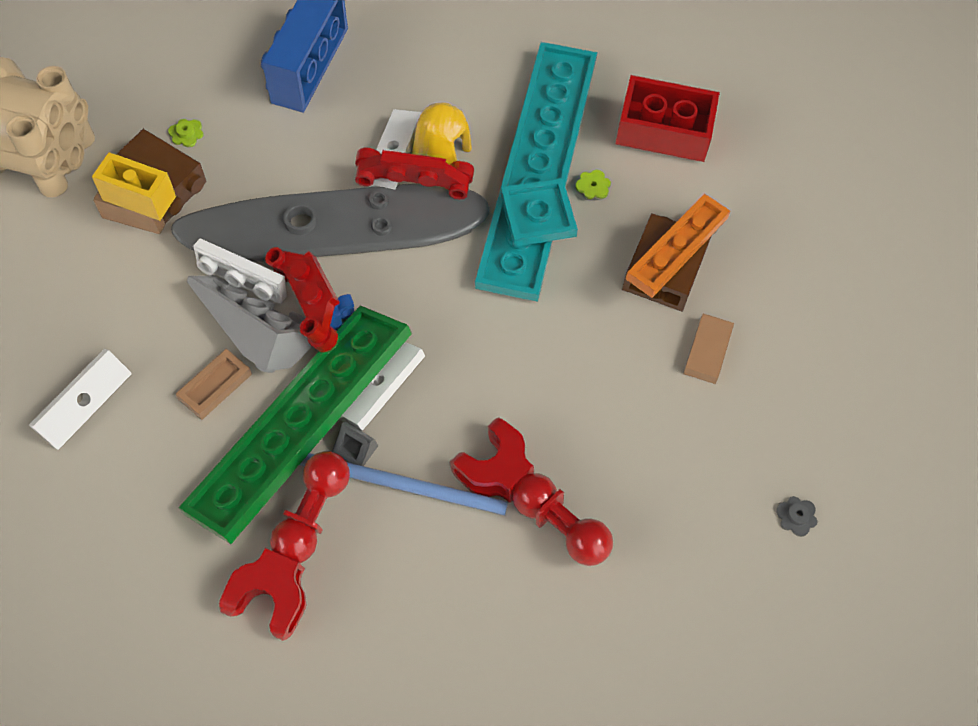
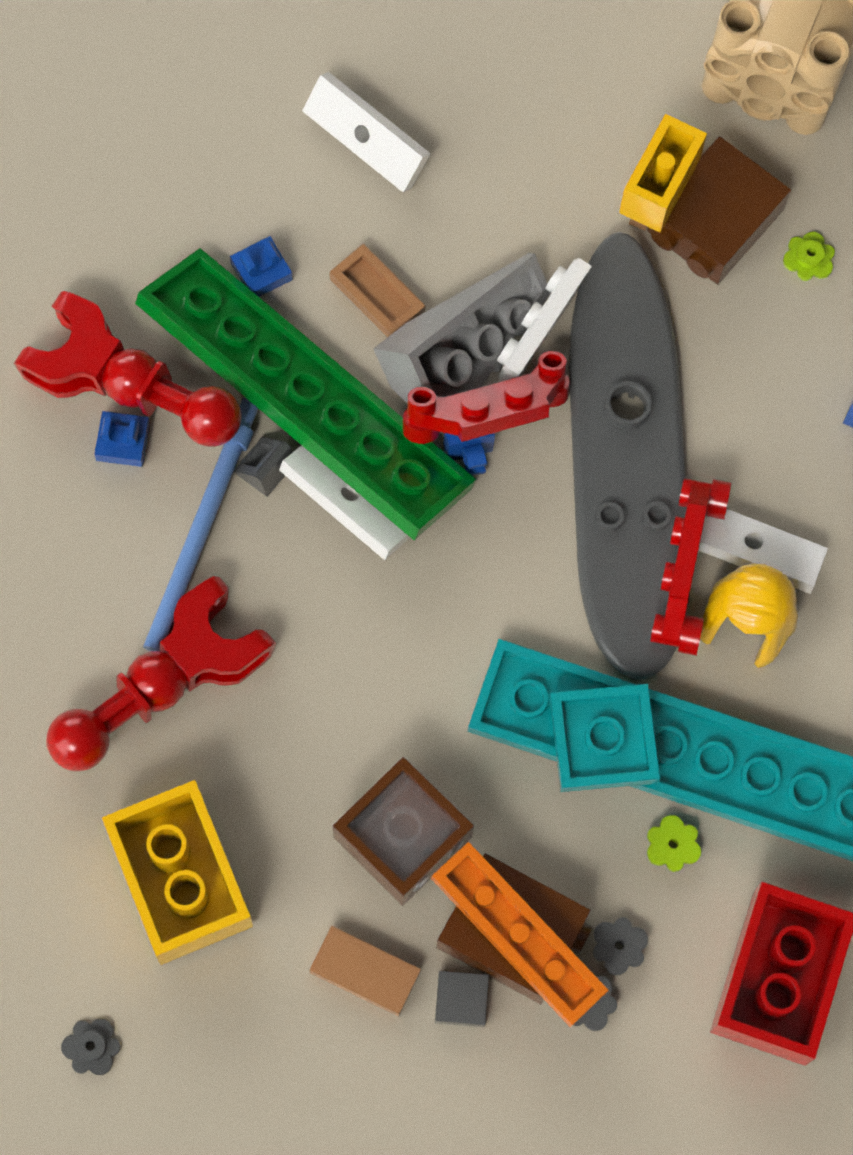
camera: 95 degrees right, 10 degrees up
(192, 464) = (261, 267): none -> blue tile
(340, 551) = (122, 439): none -> blue tile
(618, 324) = (402, 831): none -> piece
(663, 206) = (633, 941): none -> dark grey plant
(673, 461) = (177, 872): none -> yellow brick
(714, 291) = (461, 998): none -> dark grey tile

